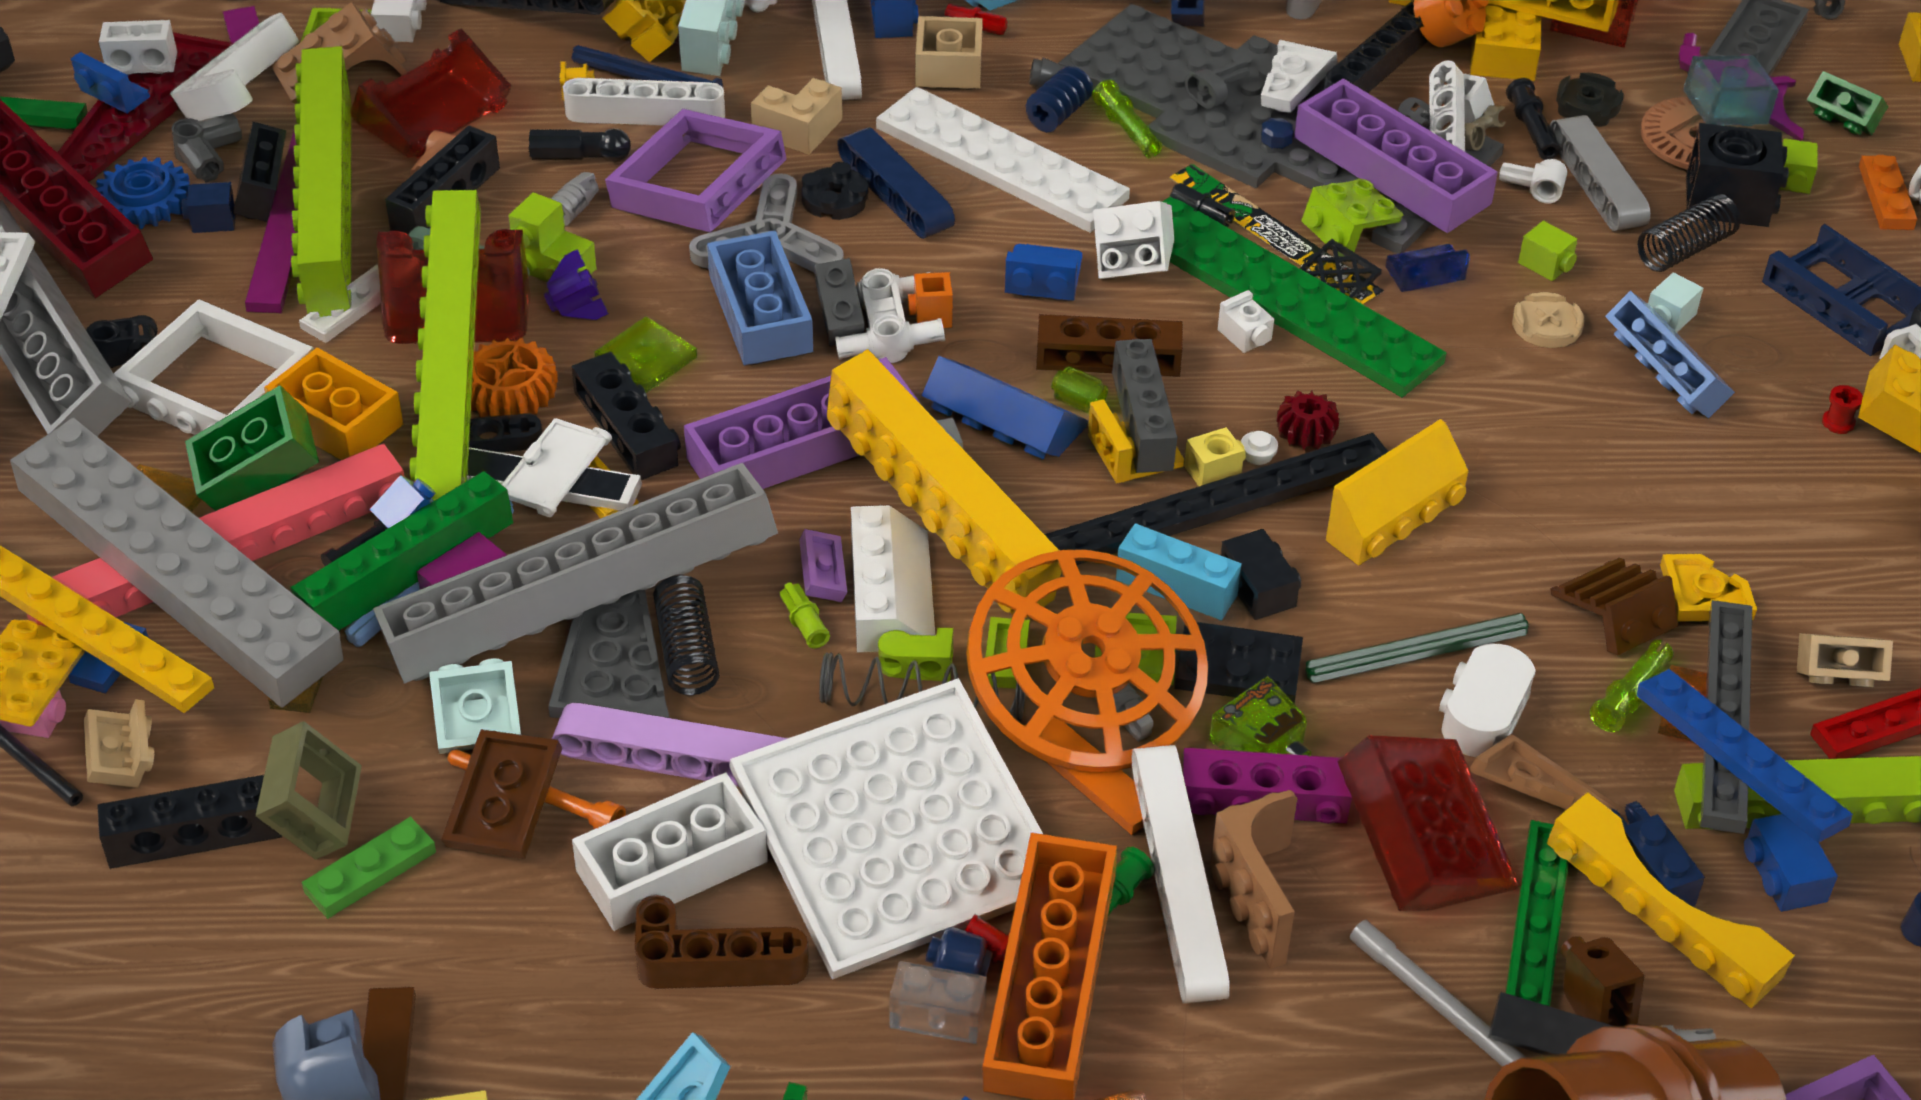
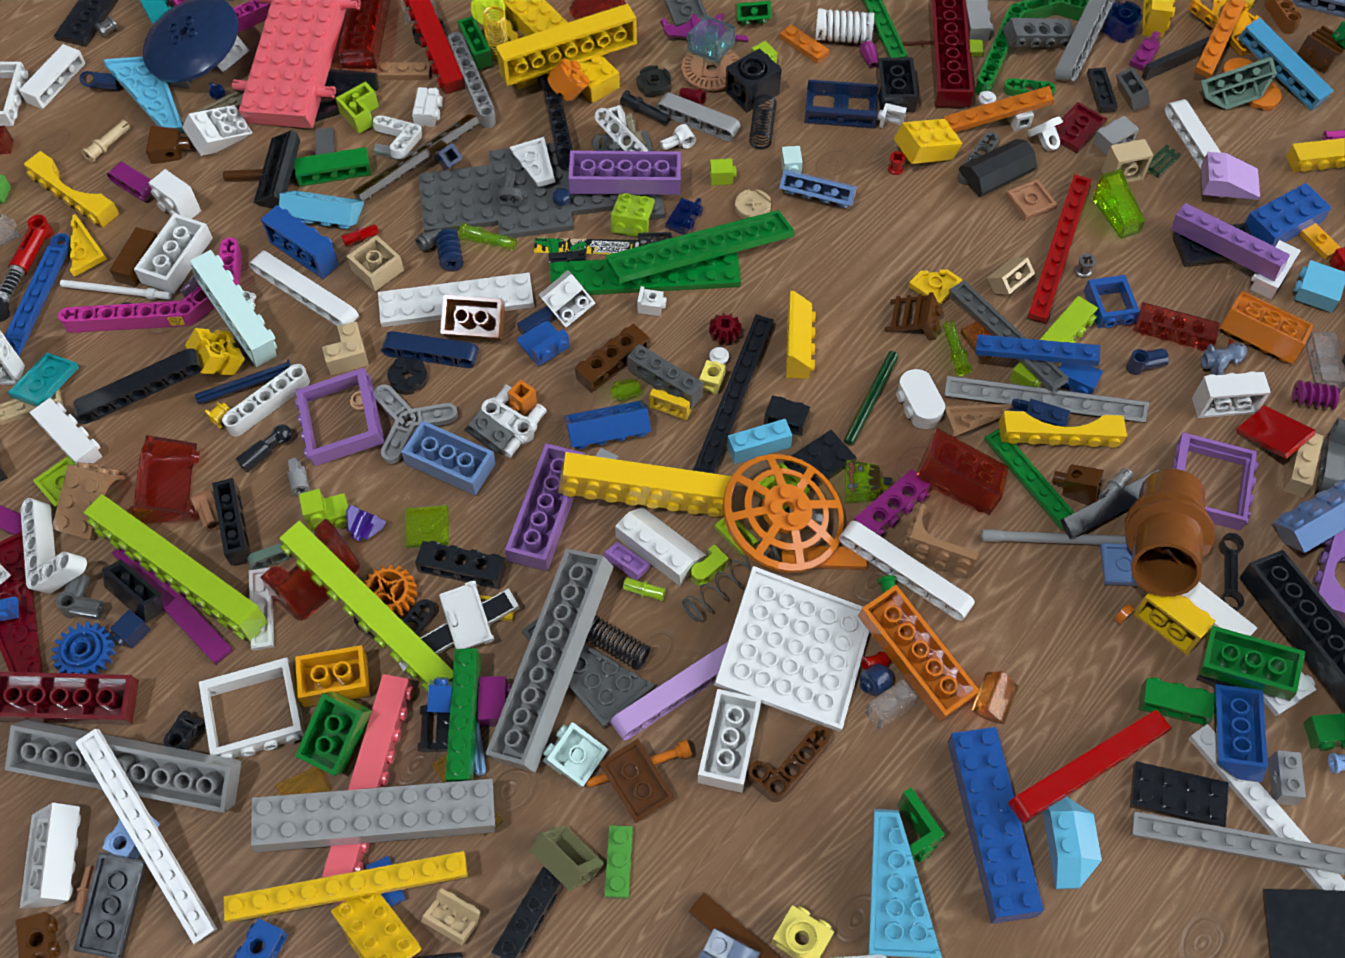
camera: 45 degrees left, 15 degrees up
(985, 177) = (472, 317): none -> brick
(1067, 239) = (535, 319): none -> dark blue piece
(1398, 304) = (699, 246): none -> green plate
(1627, 147) = (693, 94): none -> dark red cone
(1723, 869) = (1073, 401): none -> light grey plate

